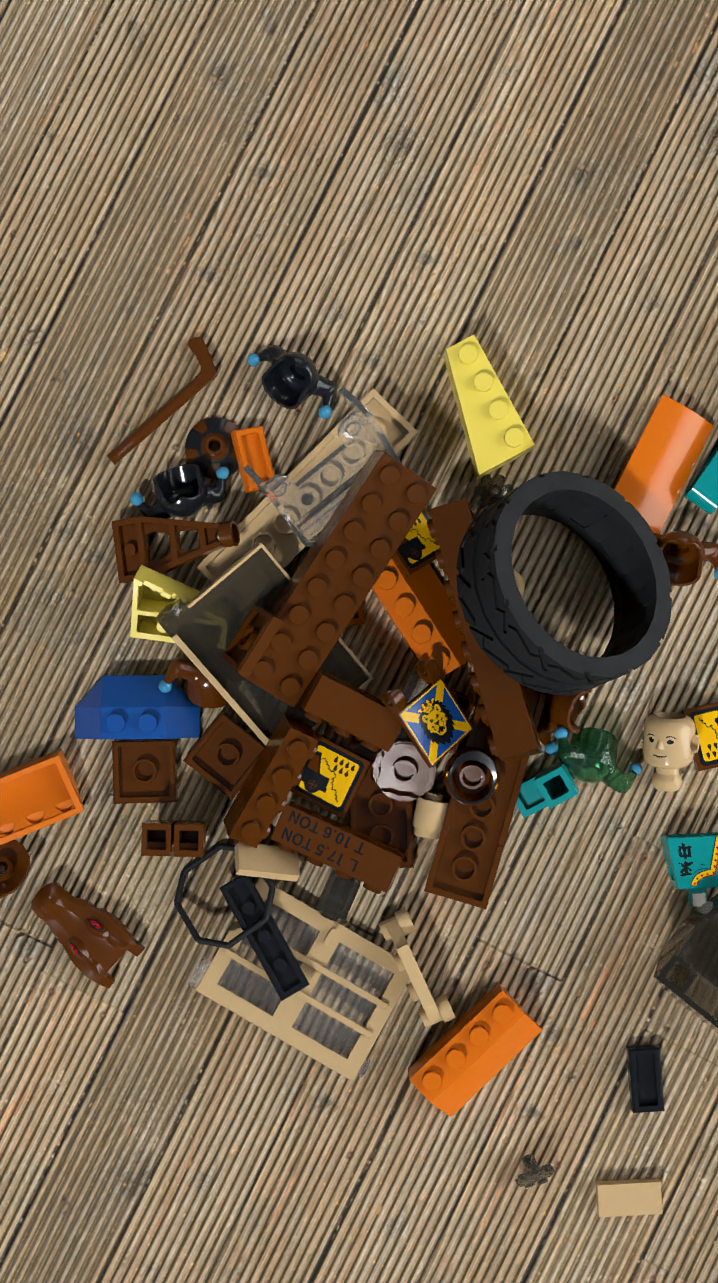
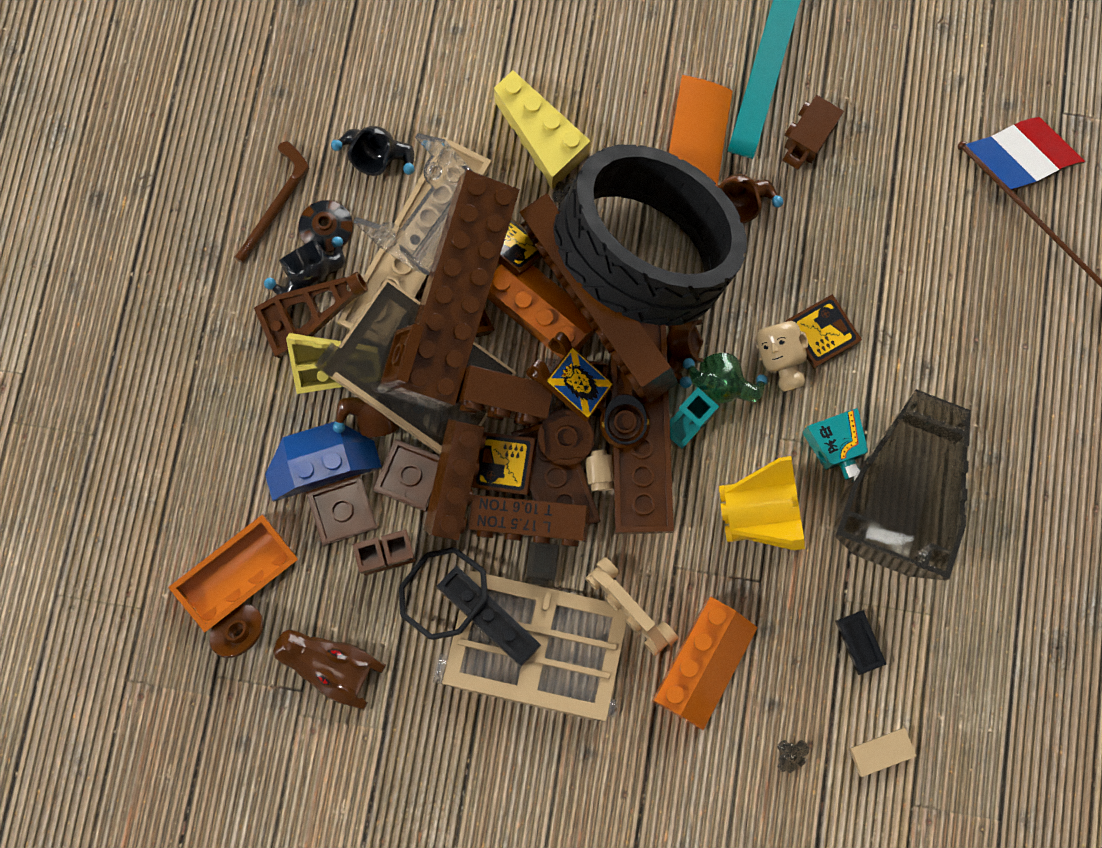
camera: 20 degrees left, 10 degrees down
(252, 450) = (347, 213): orange tile -> none
(266, 862) = (471, 551): tan tile -> none
(591, 916) = (764, 507): none -> yellow brick

